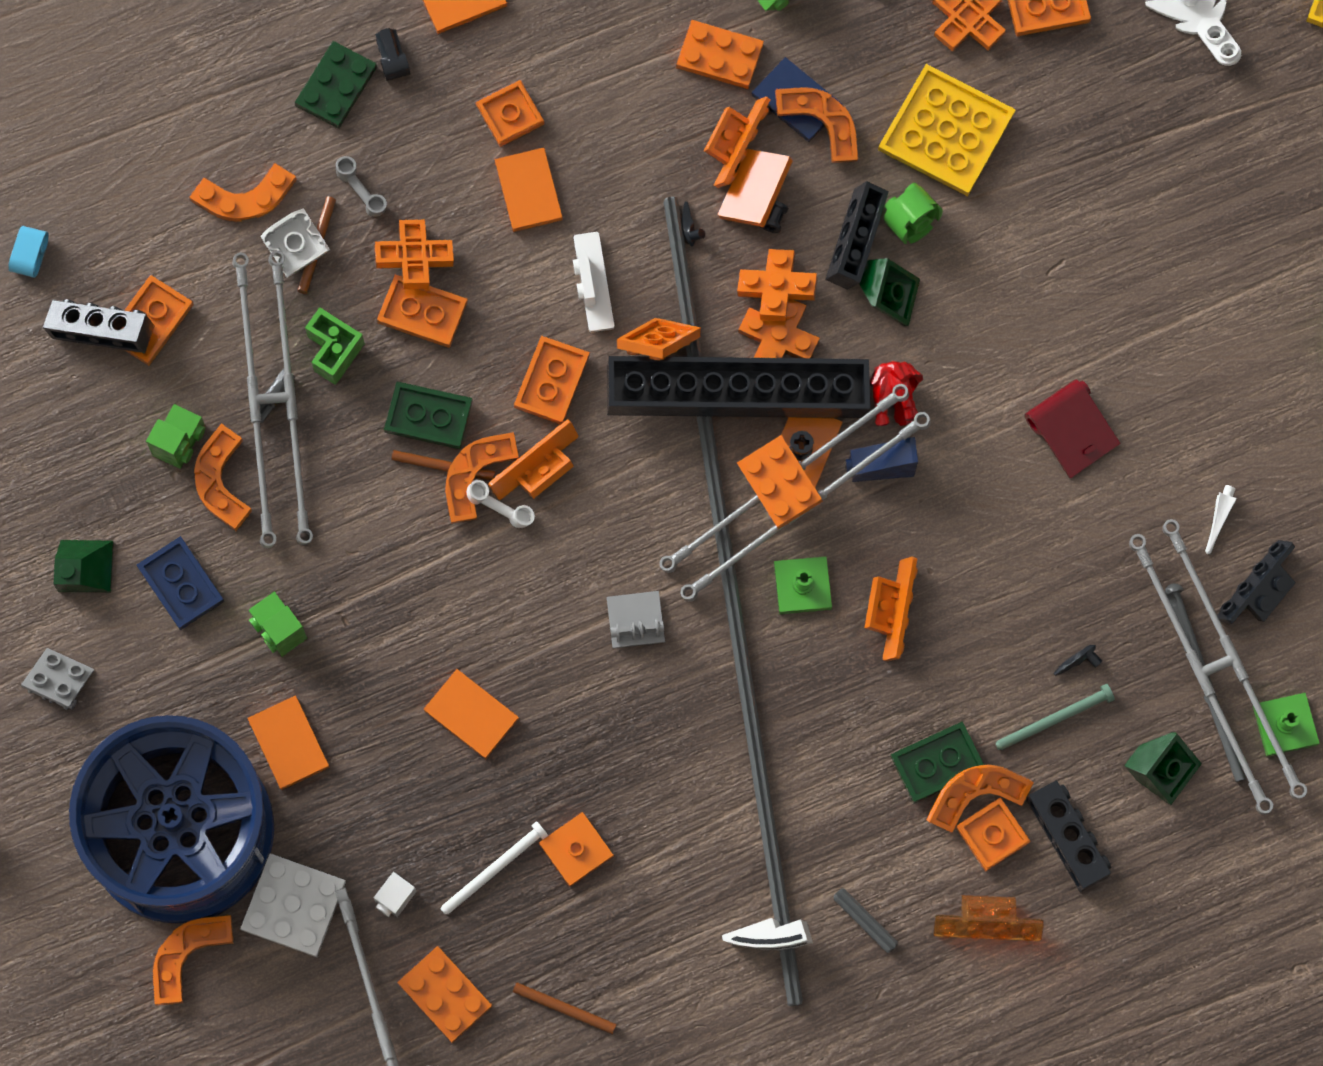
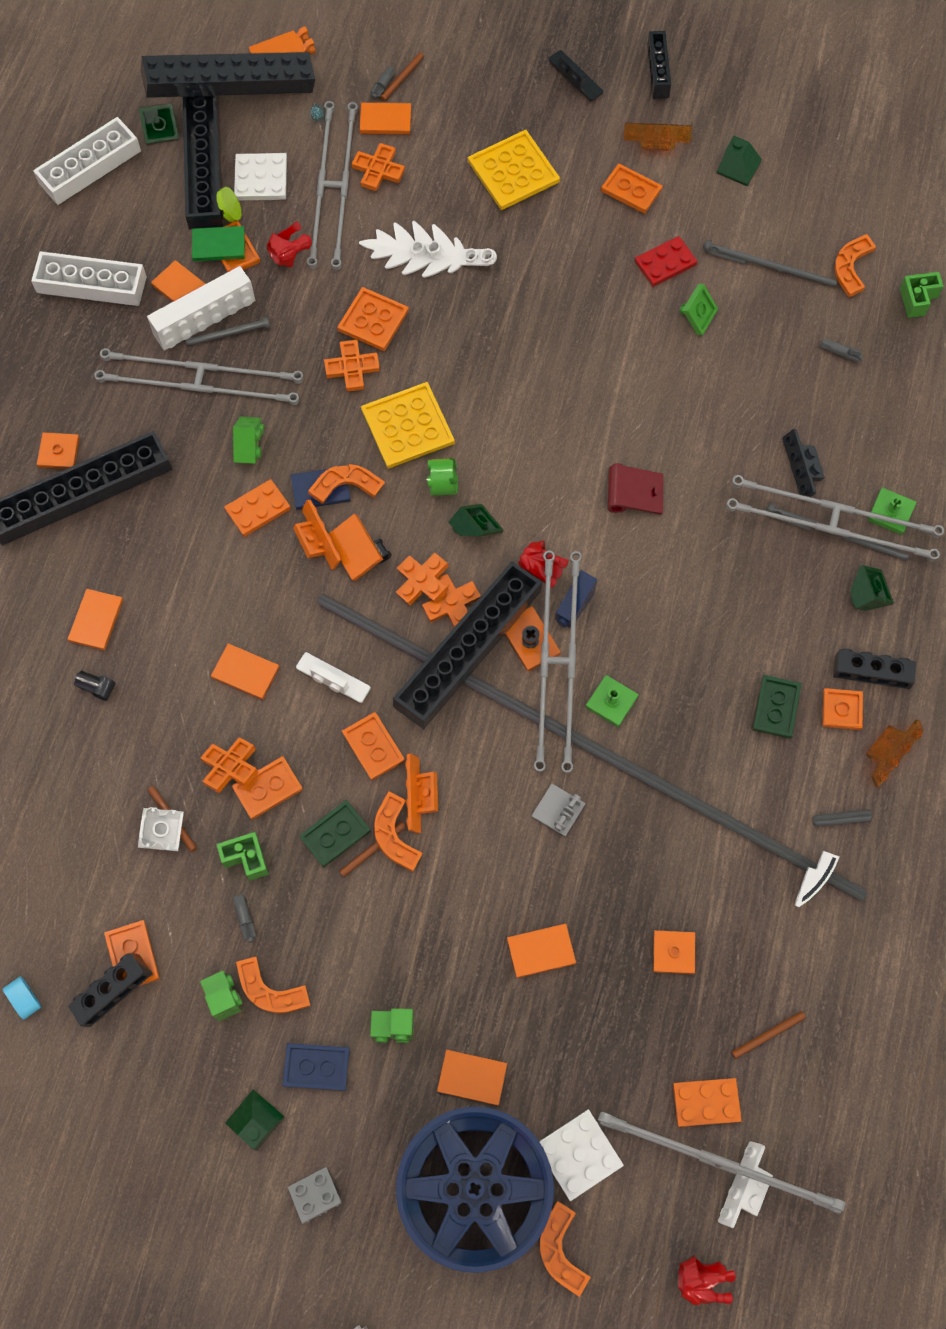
camera: 50 degrees left, 5 degrees down
(247, 205) = (110, 842): orange plate -> none
(287, 397) = (253, 908): light grey bar -> none
(335, 84) = (82, 731): dark green plate -> none
(346, 172) = (142, 766): light grey bar -> none
(394, 895) = (622, 1085): white brick -> none
(479, 493) = (442, 828): white bar -> none
(494, 868) = (650, 1022): white bar -> none
(510, 113) = (190, 646): orange plate -> none
(658, 338) = (403, 664): orange plate -> none
(689, 231) = (350, 603): black bar -> none
(779, 482) = (546, 663): orange plate -> none
(857, 235) = (430, 515): black brick -> none
(890, 607) = (665, 661): orange bracket -> none
(972, 783) = (806, 699): orange plate -> none
(1076, 659) = (771, 587): black bar -> none
(1105, 694) = (804, 588): sand green bar -> none
(1223, 506) = (742, 449): white piece -> none

